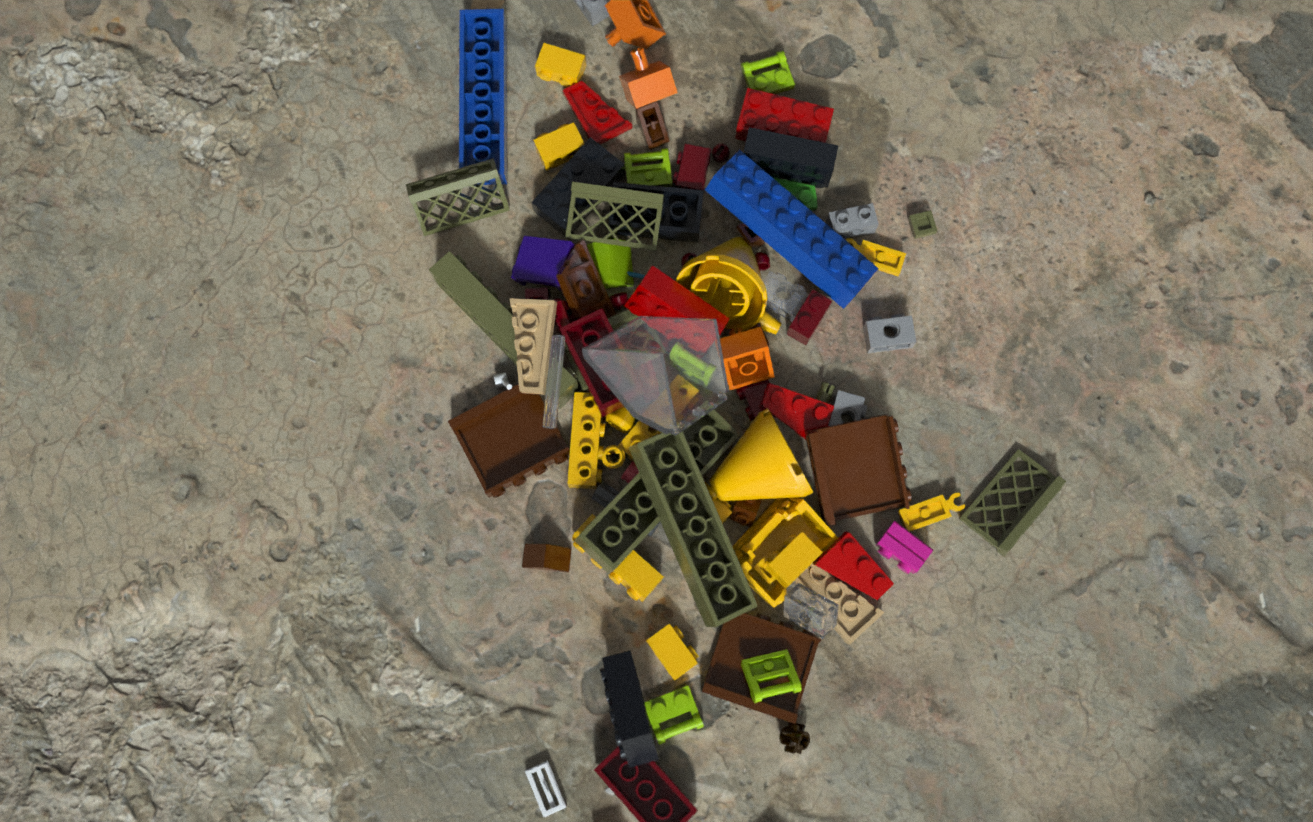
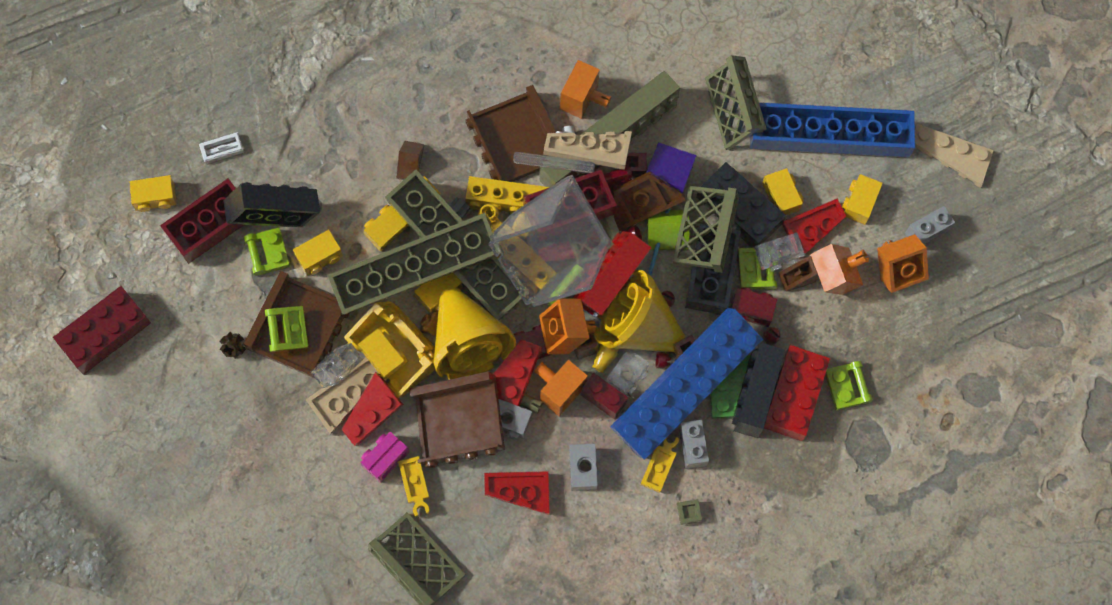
camera: 90 degrees right, 5 degrees down
(452, 365) = (581, 90): none -> orange brick
(631, 144) = (769, 252): none -> clear brick
(806, 360) = (561, 387): none -> orange brick
(919, 398) = (520, 488): none -> red wing

